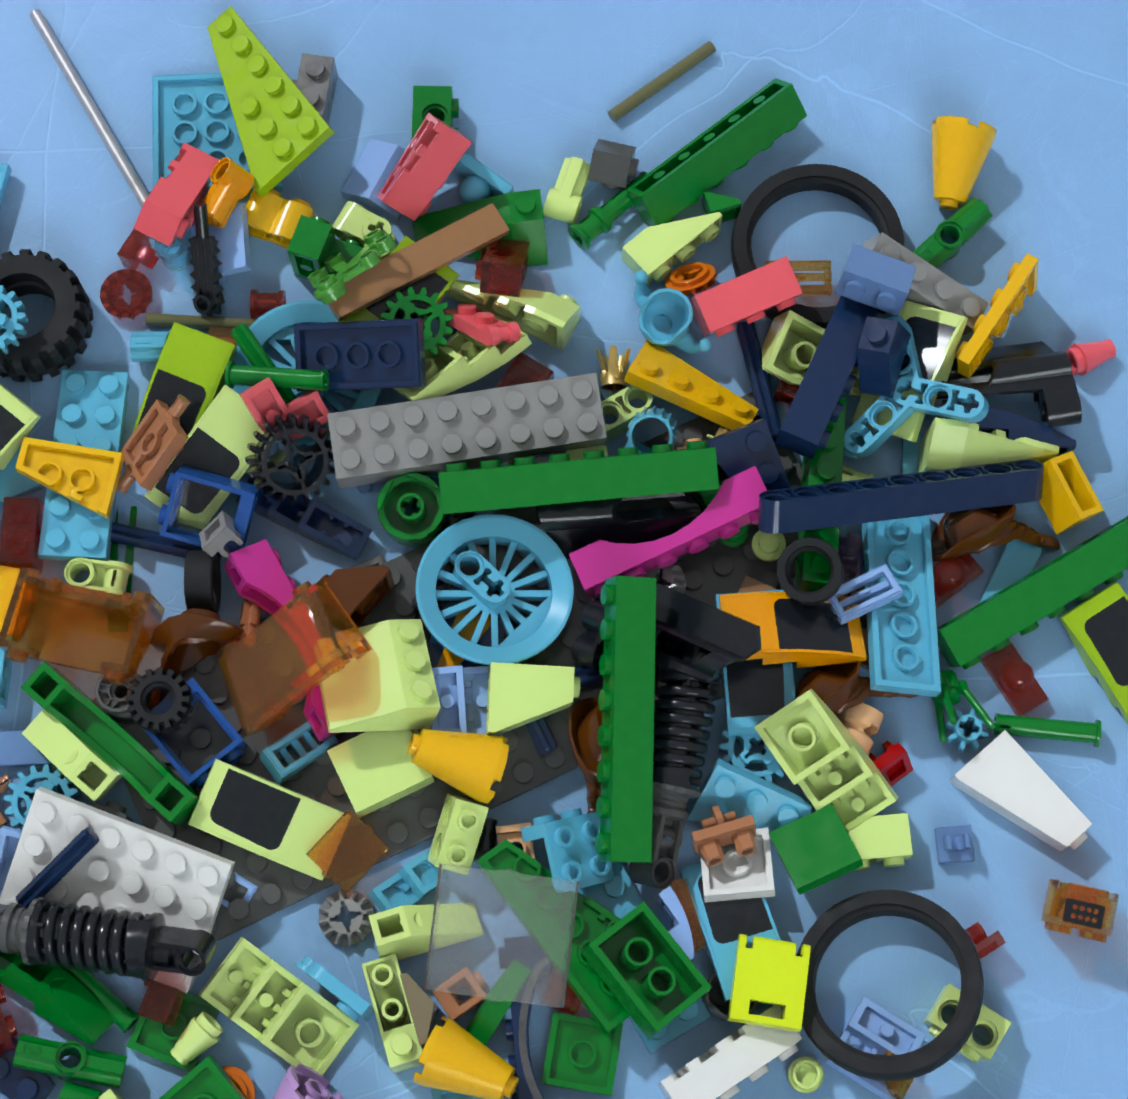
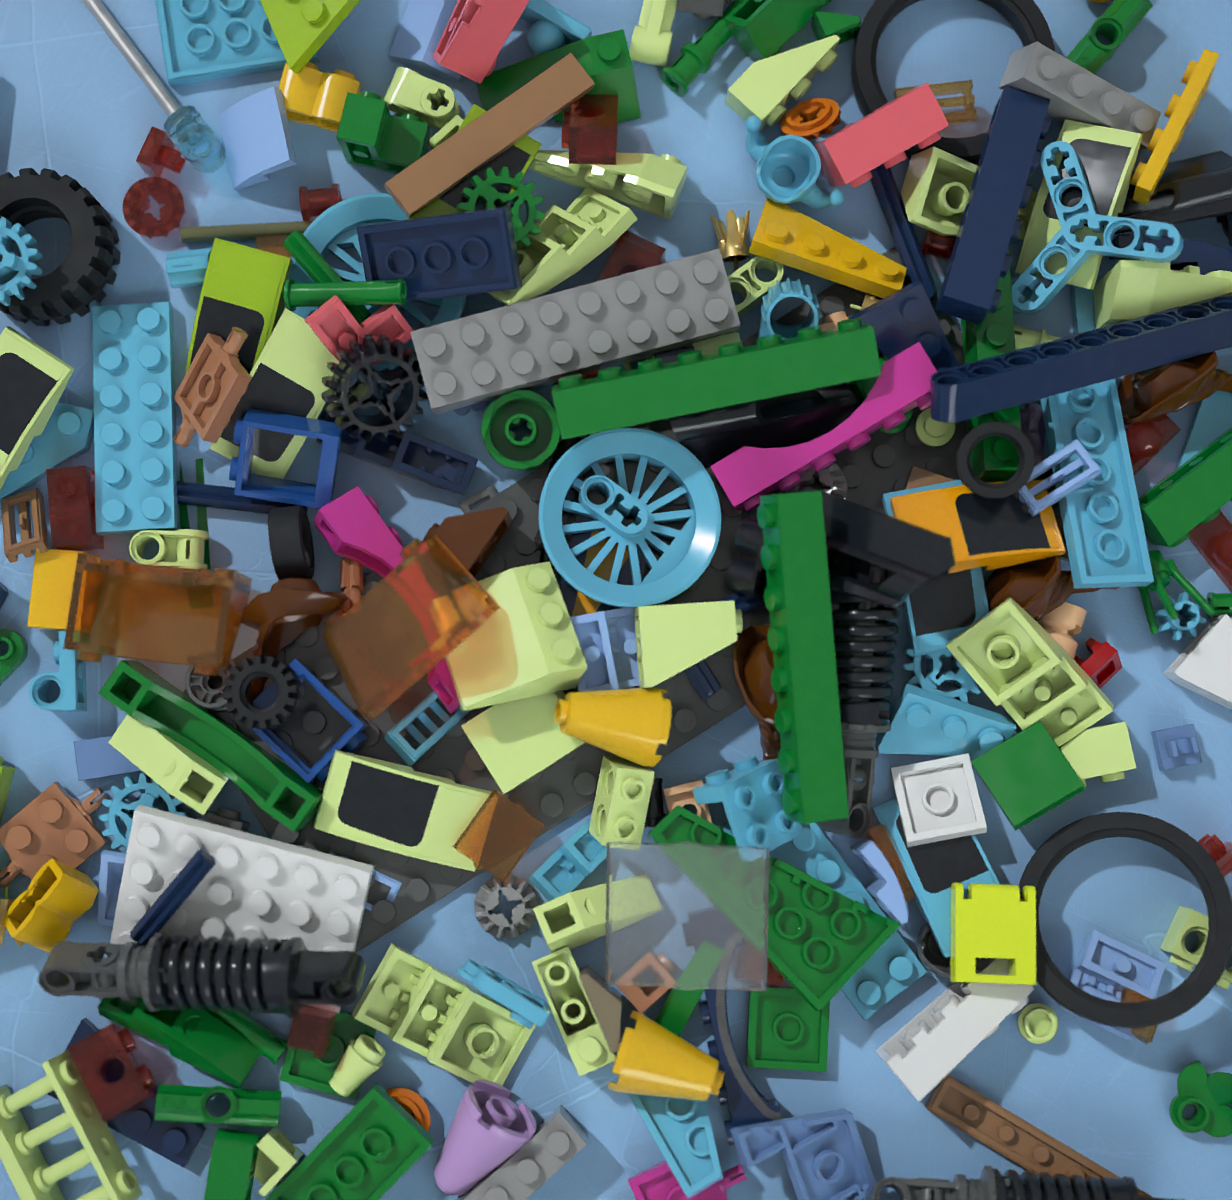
camera: 10 degrees left, 10 degrees up
(73, 471) = (123, 430): yellow wing -> none
(170, 204) = (198, 85): coral wedge -> none
(205, 264) = (242, 164): black piece -> none
(218, 533) = (302, 488): light grey tile -> none
(228, 186) = (256, 65): light orange piece -> none
(331, 286) = (433, 138): bright green plant -> none
(482, 325) = (577, 203): coral plate -> none
(646, 970) = (857, 940): green brick -> none
(723, 831) = (907, 779): nougat hips -> none
(875, 279) = (1035, 101): medium blue brick -> none
(881, 356) = (1050, 193): dark blue slope -> none

